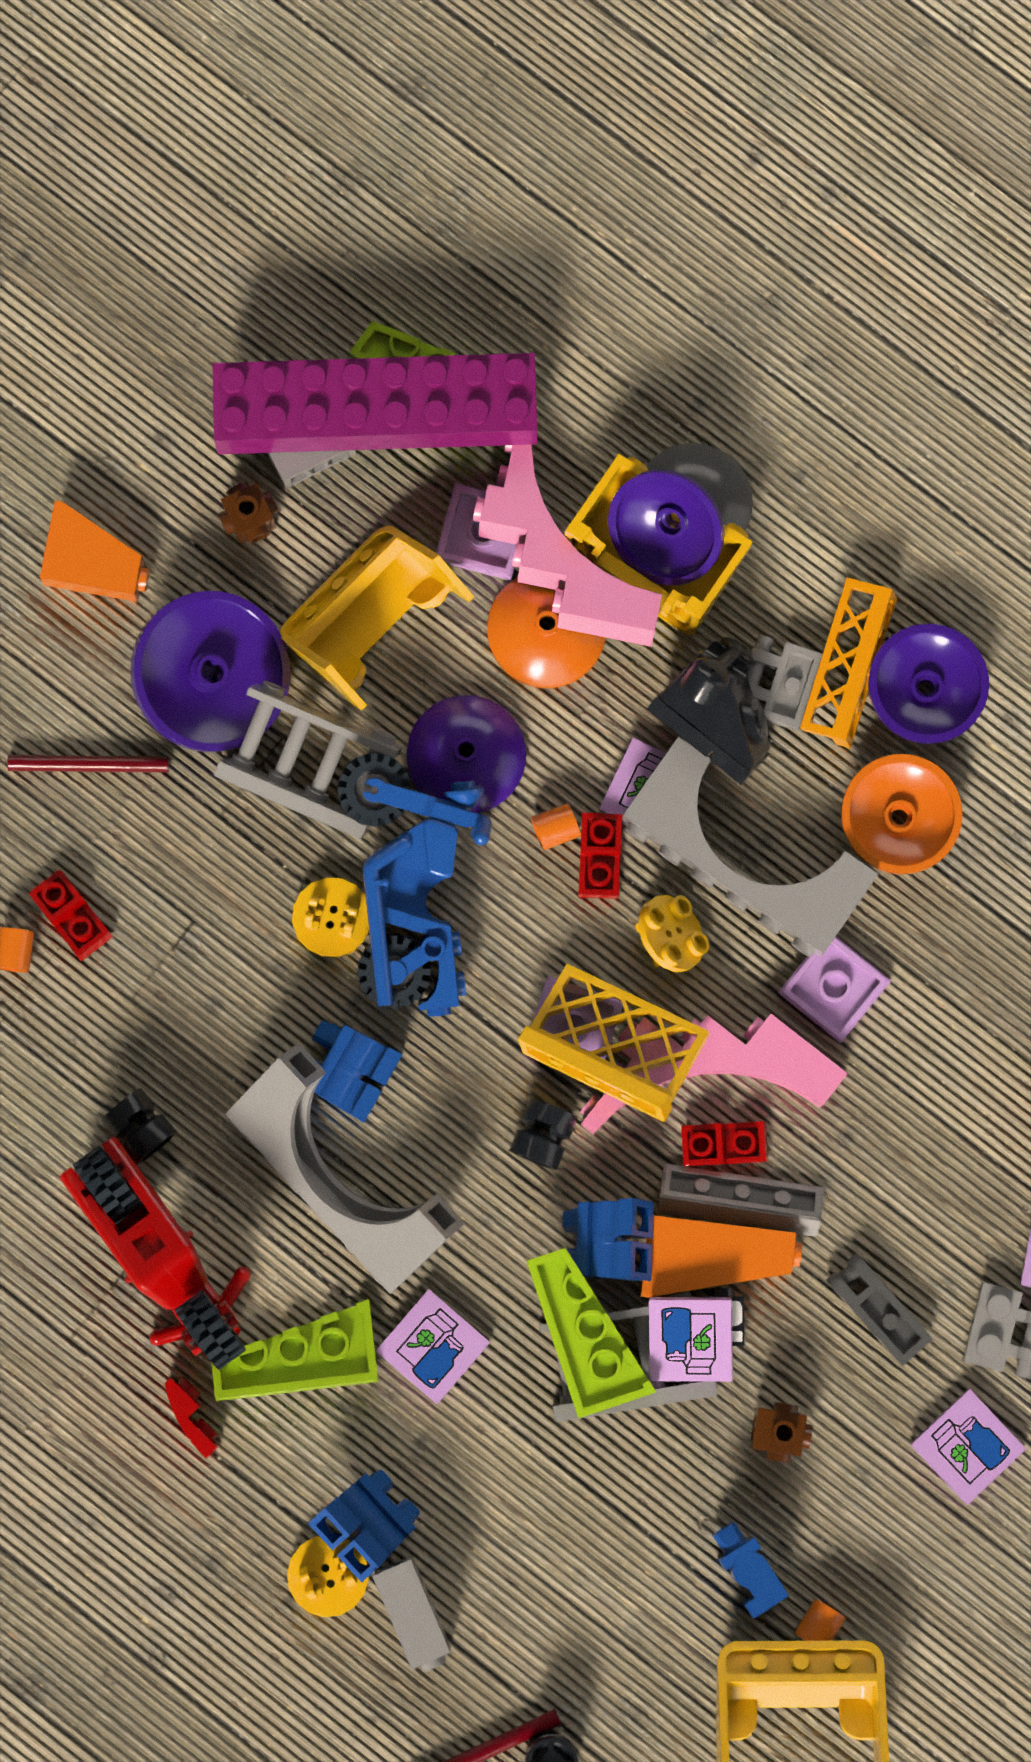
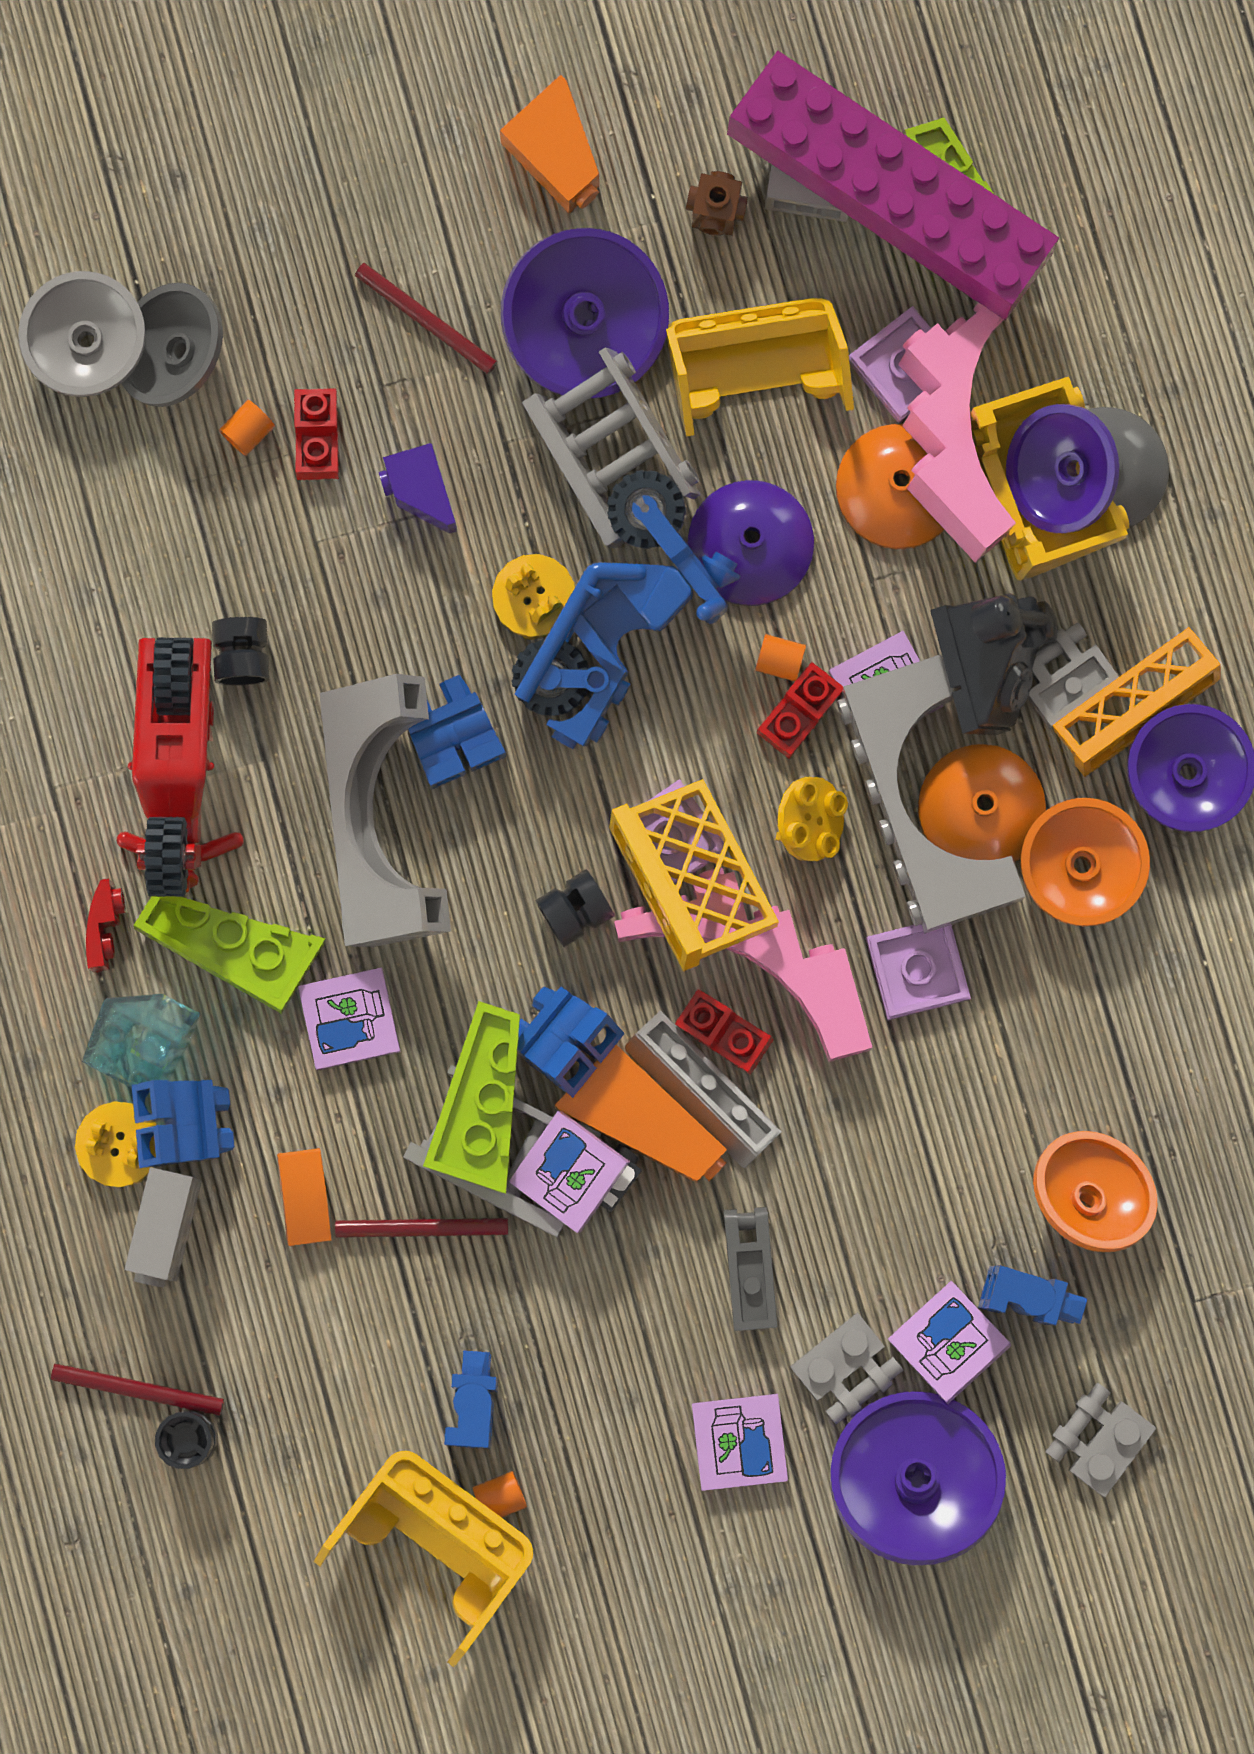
camera: 40 degrees right, 0 degrees up
(181, 897) = (418, 486): none -> dark purple slope
(285, 1482) = (140, 1038): none -> clear light blue slope
(501, 1509) = (304, 1197): none -> orange slope
(607, 1464) = (421, 1227): none -> dark red bar
(761, 831) = (950, 808): none -> orange dish
(765, 1427) = (578, 1293): reddish brown brick -> none

